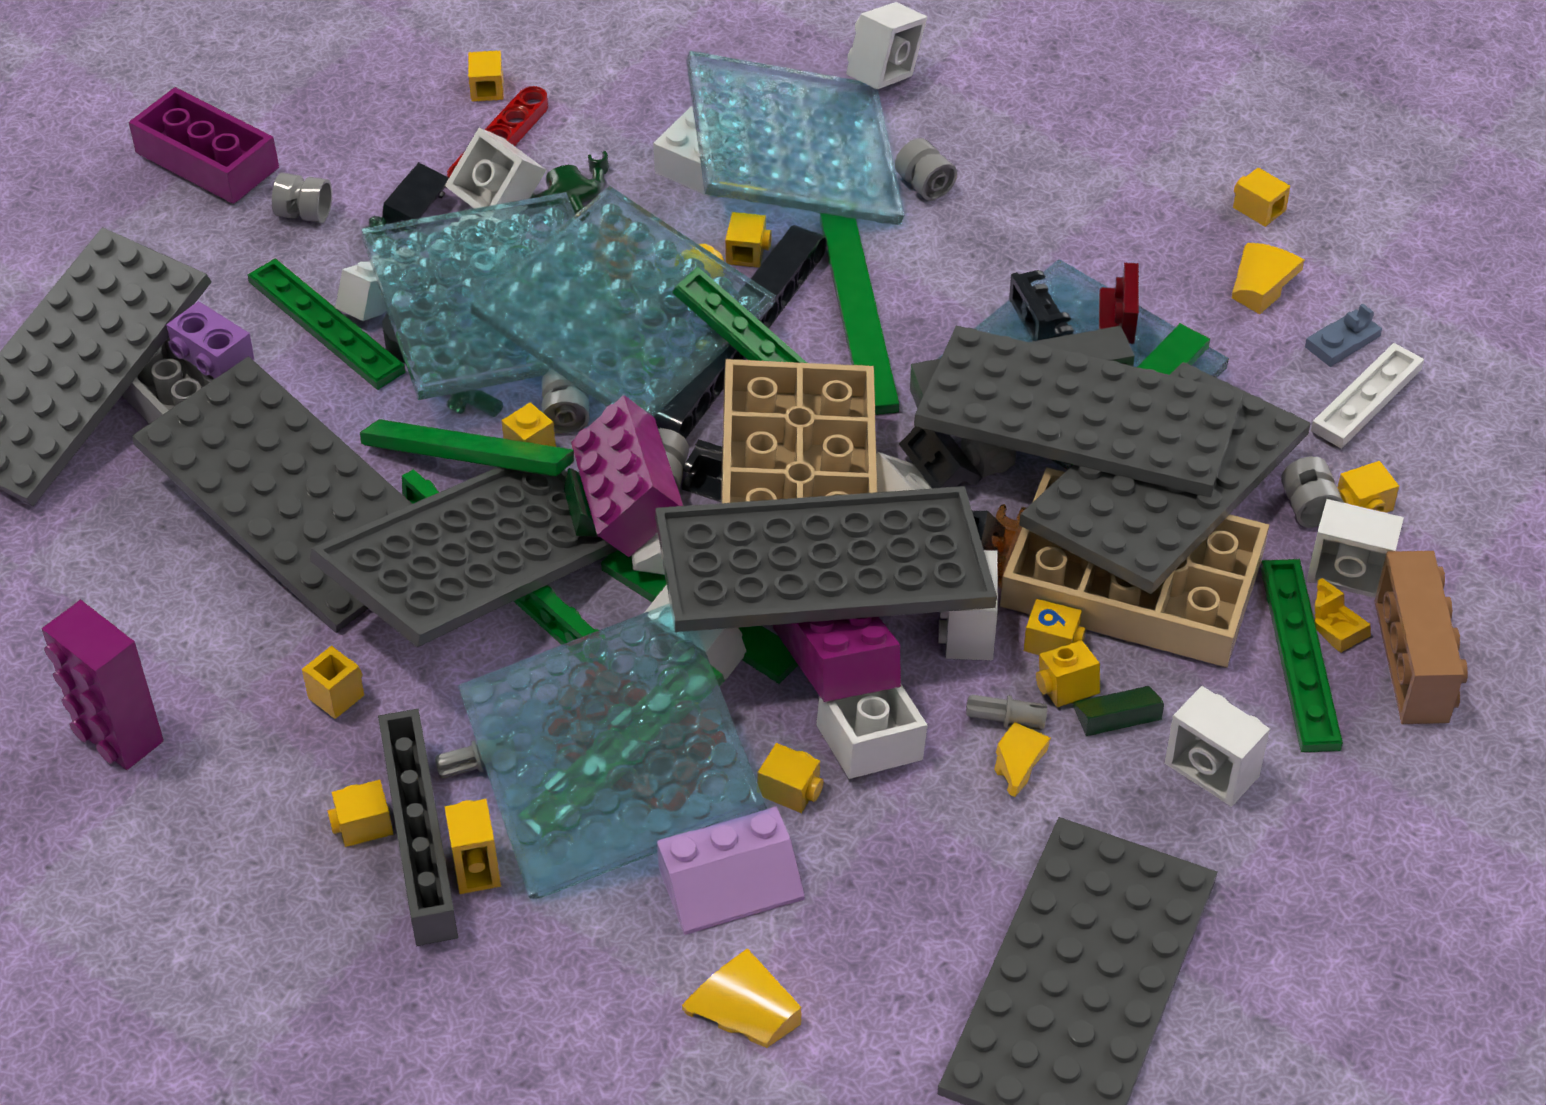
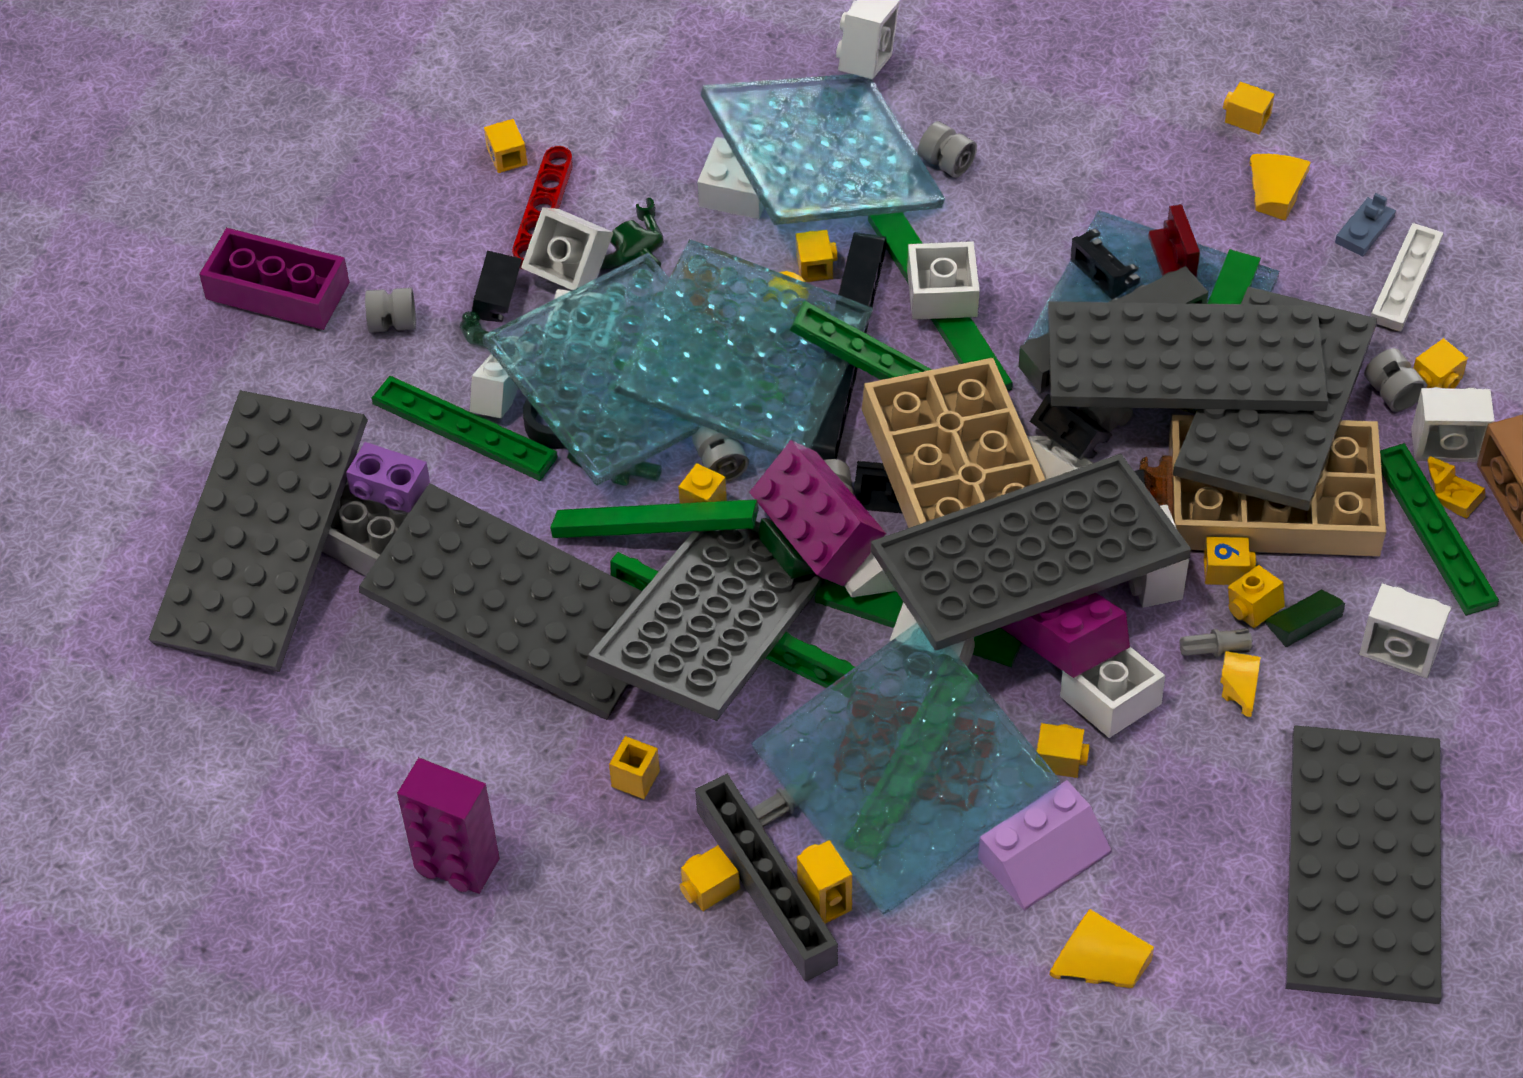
camera: 15 degrees left, 5 degrees up
(861, 286) = (943, 280): none -> white brick

